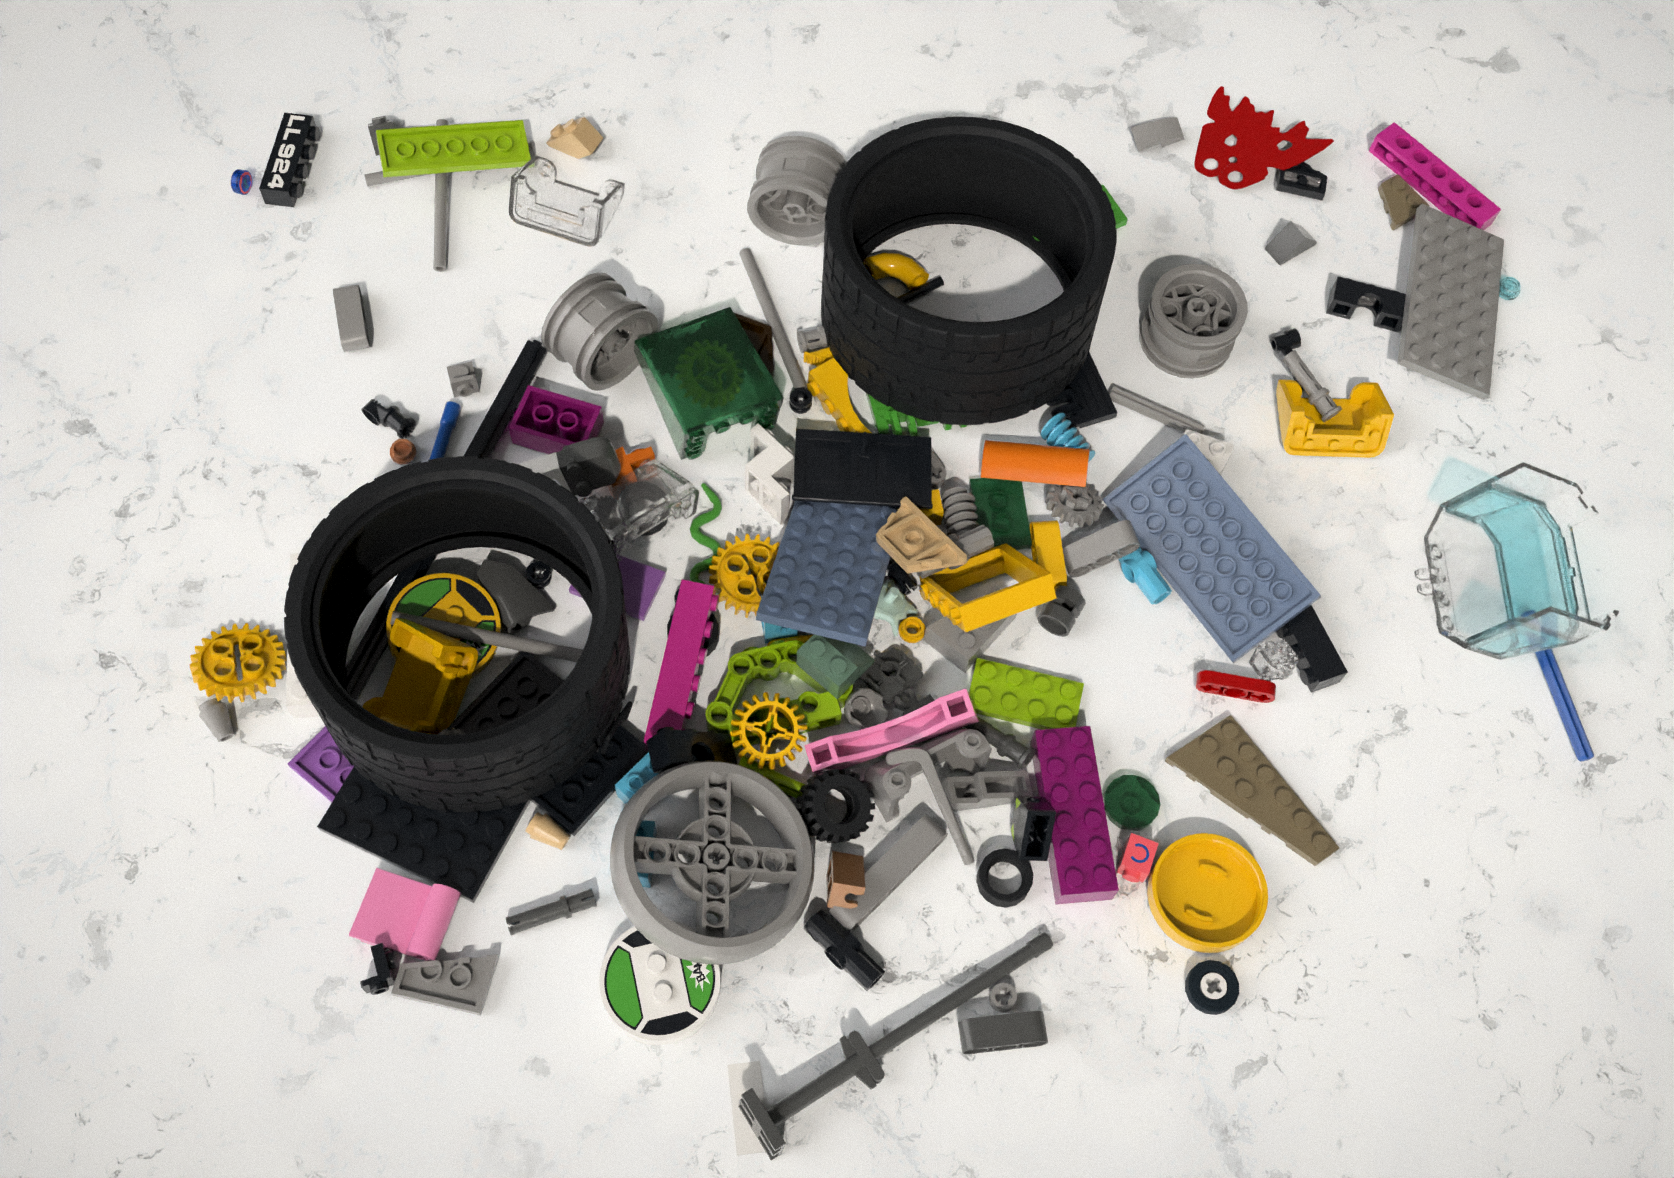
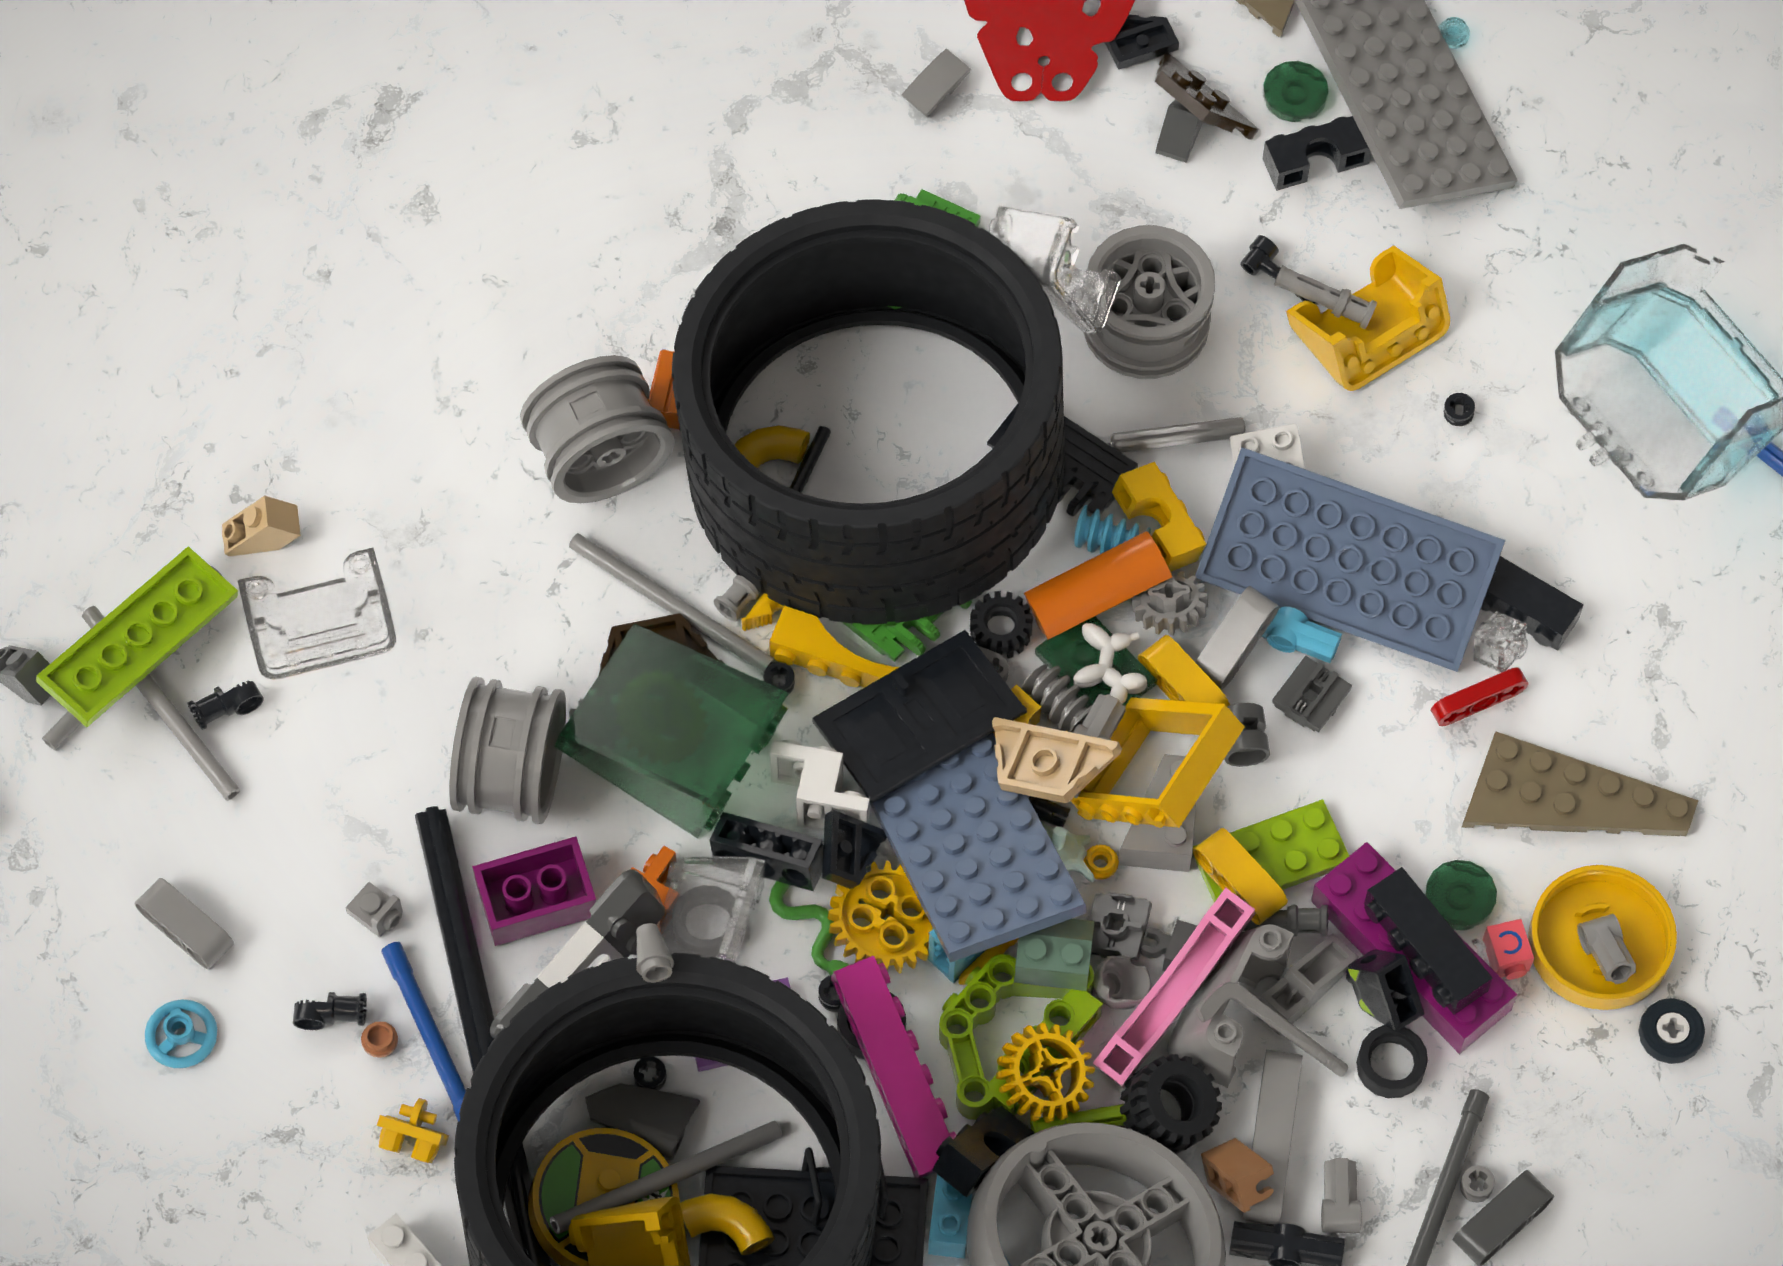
camera: 30 degrees left, 0 degrees up
(297, 370) = (174, 1021): none -> medium azure piece
(477, 217) = (237, 700): none -> black connector
(506, 686) = (728, 1216): none -> yellow cylinder
(543, 476) = (652, 954): none -> light grey cone
(716, 496) = (788, 854): none -> black brick
(756, 517) = (848, 848): none -> black wing
(900, 947) = (1340, 1205): none -> light grey piece
(964, 440) = (1001, 607): none -> black tyre
(990, 693) = (1240, 873): none -> yellow beam
(1000, 517) = (1094, 674): none -> white piece
(1080, 814) = (1427, 941): none -> black brick
(1109, 431) = (1149, 494): none -> yellow arch
(1131, 603) = (1312, 676): none -> dark grey piece
(1136, 231) = (1047, 250): none -> clear windscreen
(1205, 898) = (1605, 942): none -> light grey piece
(1314, 231) = (1206, 104): none -> dark brown wing
(1347, 500) = (1468, 405): none -> black bush
(1379, 264) = (1295, 91): none -> clear green tile

